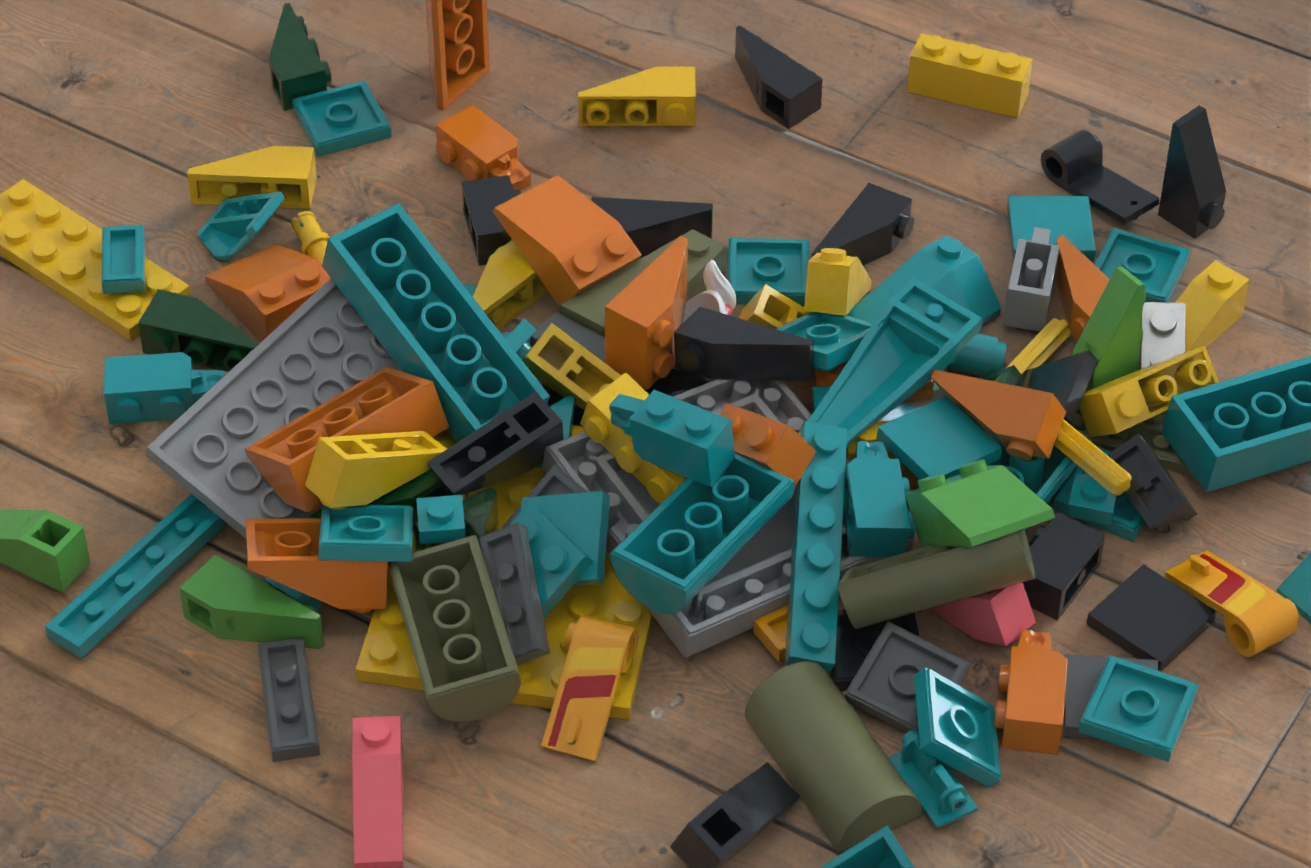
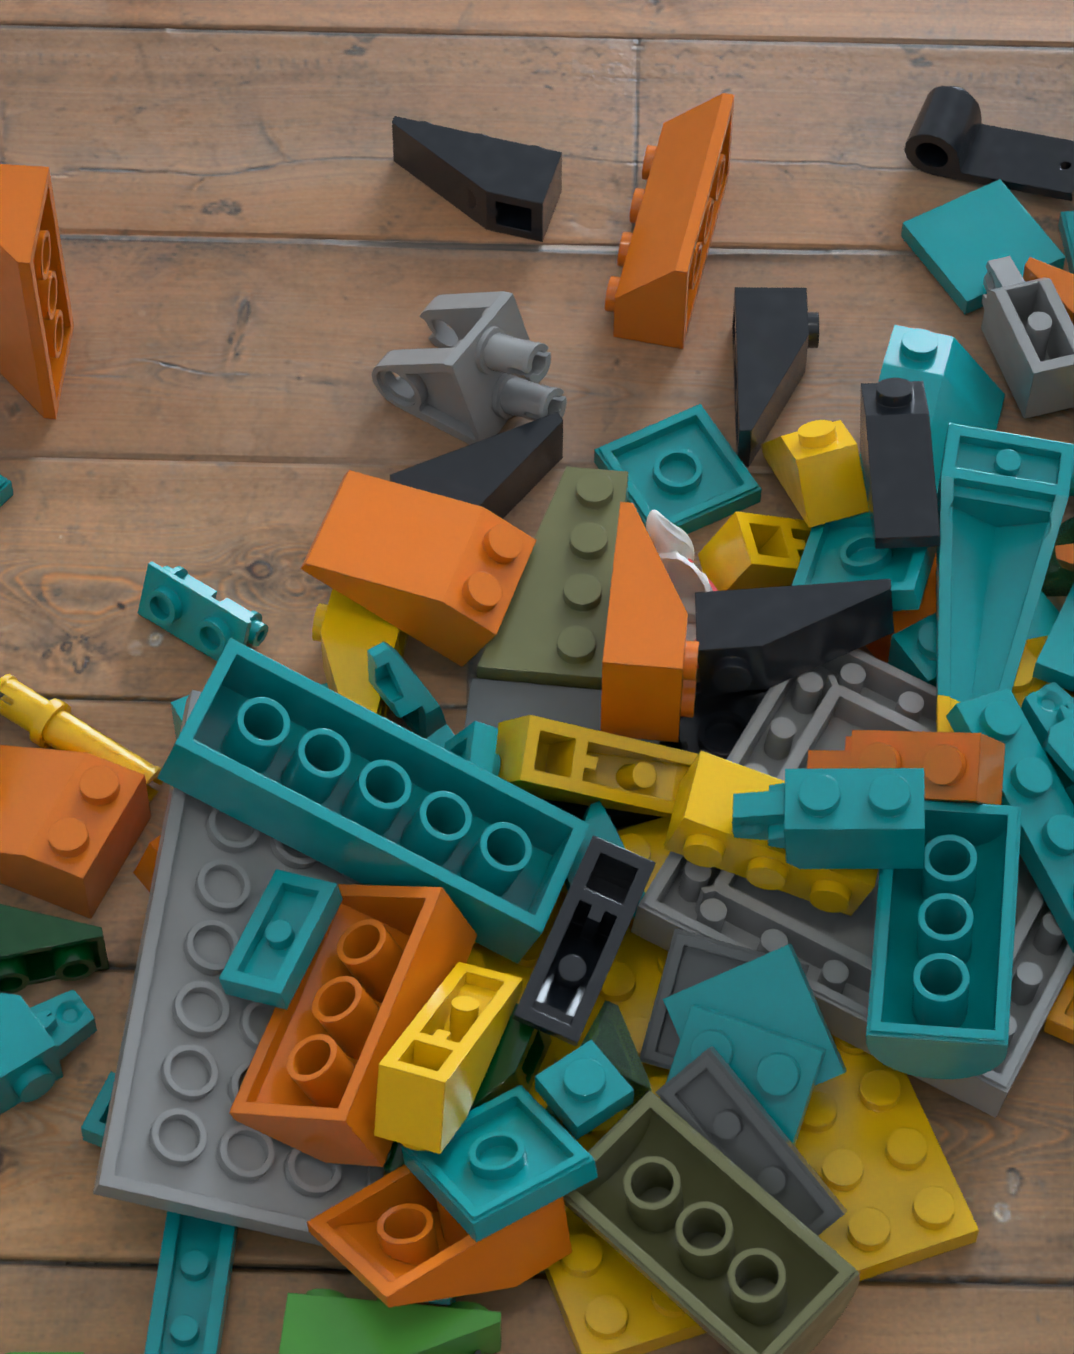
camera: 30 degrees left, 10 degrees up
(333, 375) = (281, 939): none -> teal plate
(441, 226) = (193, 614): none -> teal hinge
(480, 148) = (176, 466): orange hinge -> none
(483, 226) = (258, 561): black brick -> none
(512, 294) = (403, 690): none -> teal slope
(588, 684) = (920, 1225): light orange door -> none
(642, 99) = (340, 280): yellow slope -> none
(686, 167) = (477, 373): none -> light grey piece
(864, 144) = (672, 226): none -> orange slope
(870, 287) = (898, 464): none -> black slope
(969, 75) = (744, 56): yellow brick -> none

